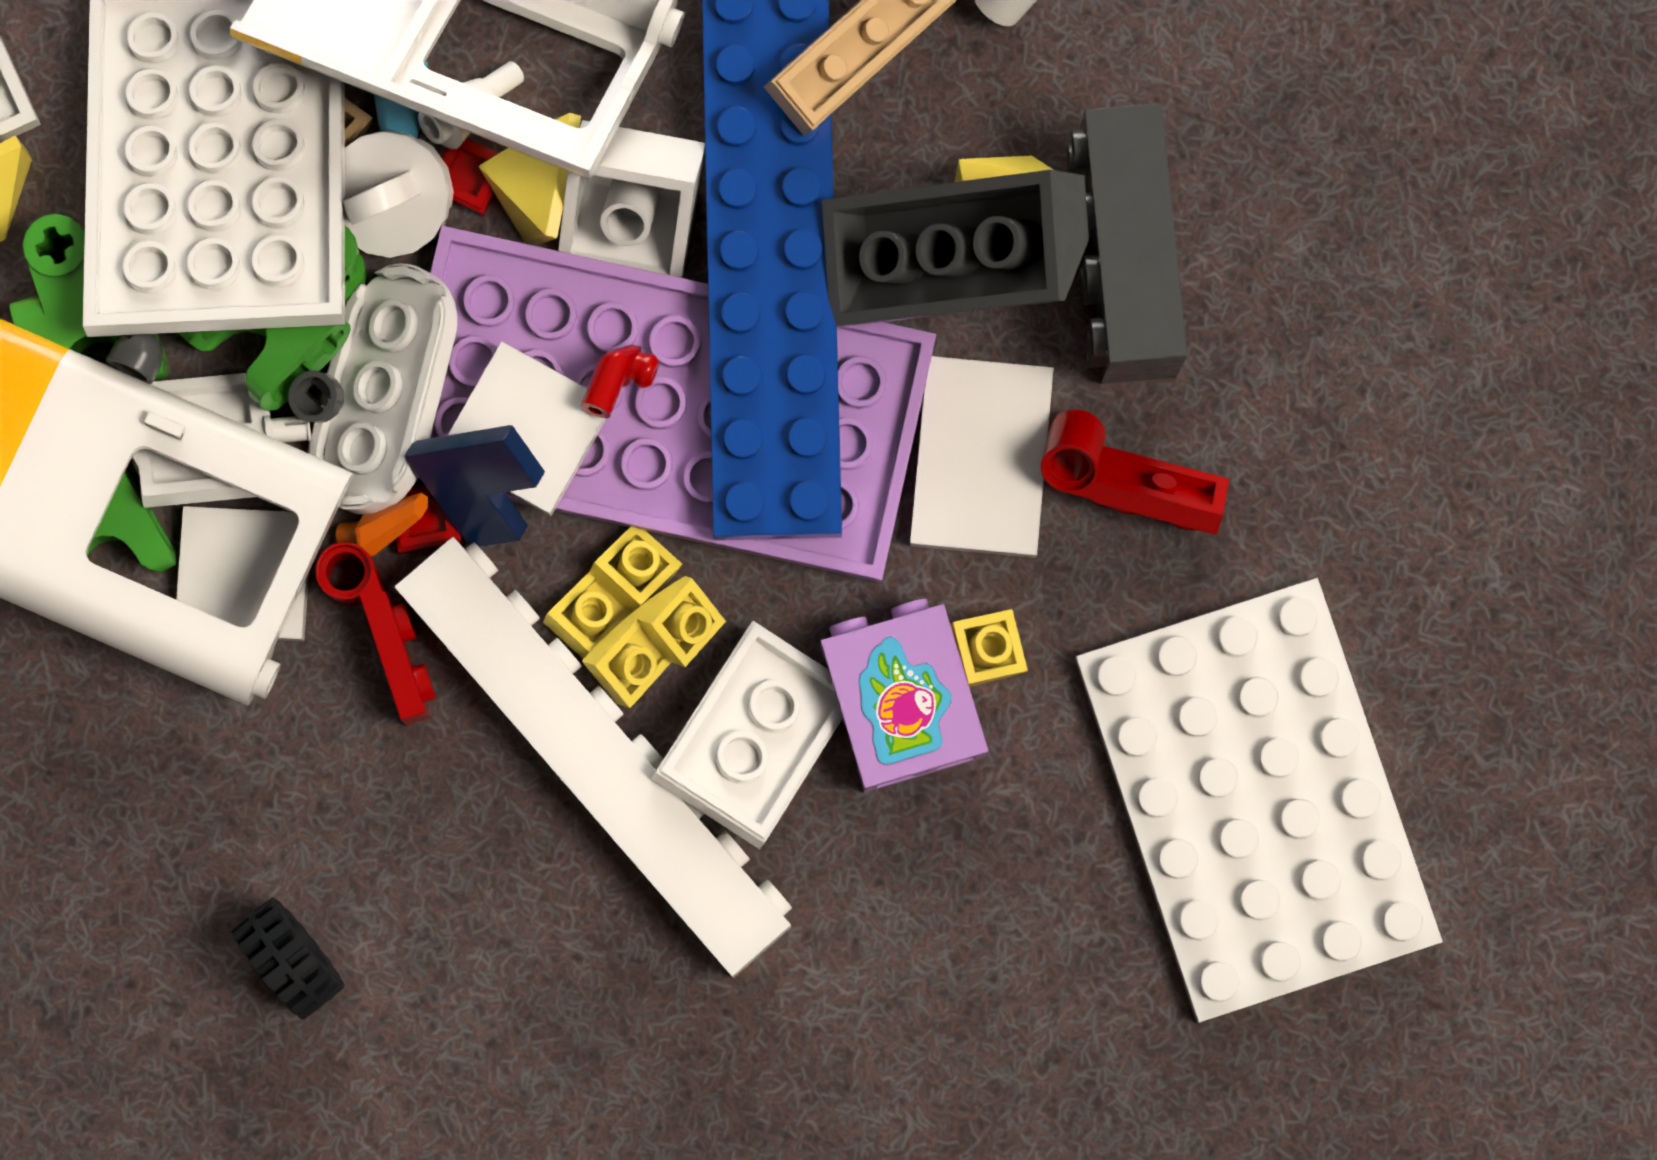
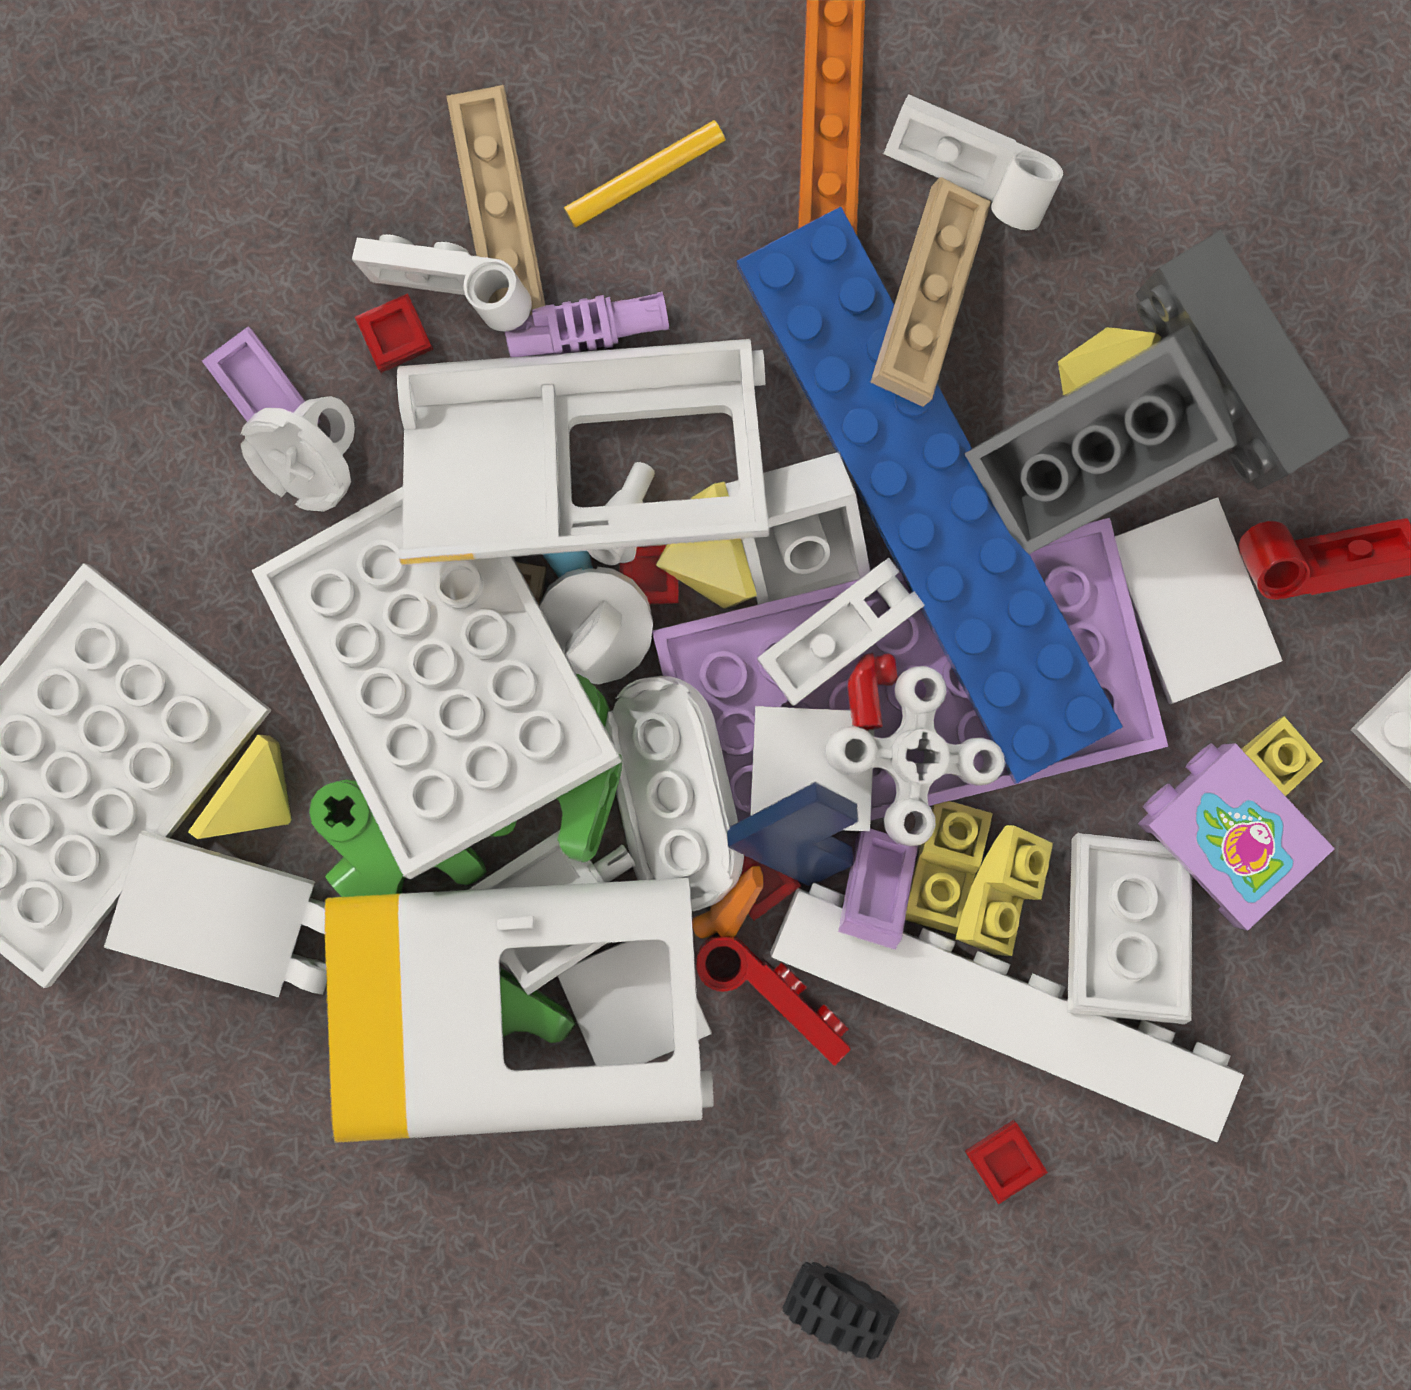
camera: 20 degrees left, 5 degrees up
(137, 356) = (459, 873): dark grey hinge -> none
(308, 406) = (619, 839): dark grey hinge -> none
(524, 907) = (1006, 1161): none -> red tile
(531, 573) = (878, 889): none -> lavender tile
(616, 311) = (838, 633): none -> white plate
(655, 477) = (912, 778): none -> white gear

